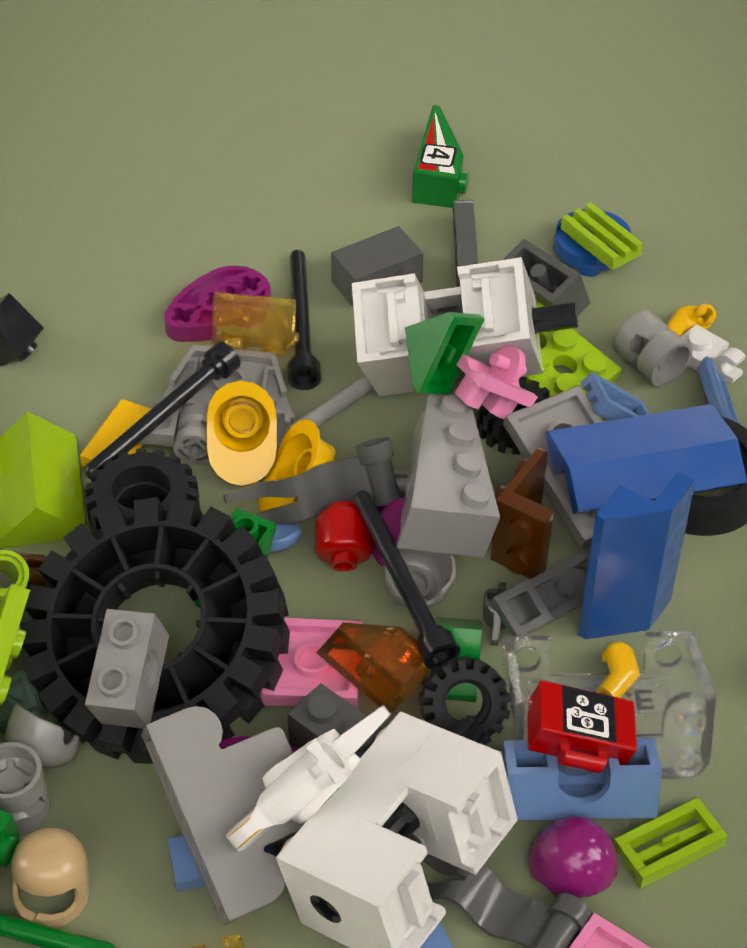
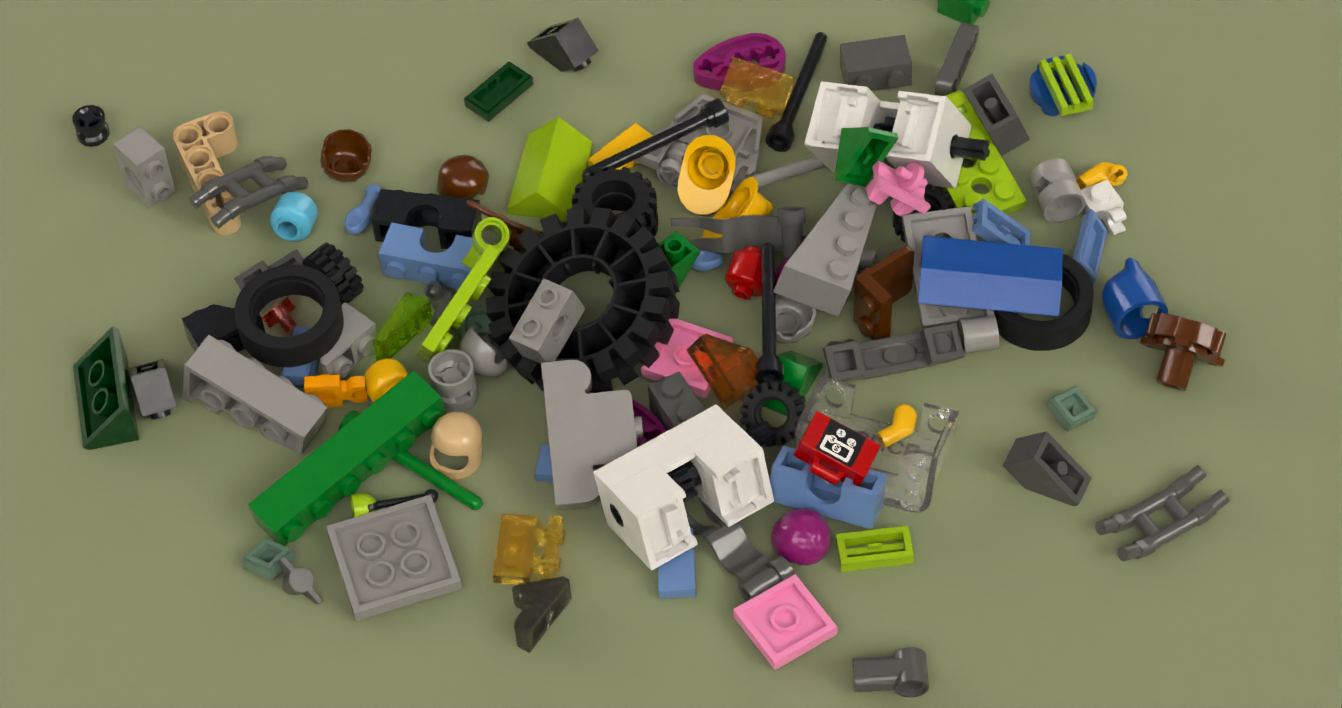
camera: 25 degrees right, 5 degrees up
(305, 780) = (630, 428): white animal -> none
(634, 559) = (931, 348): blue slope -> none

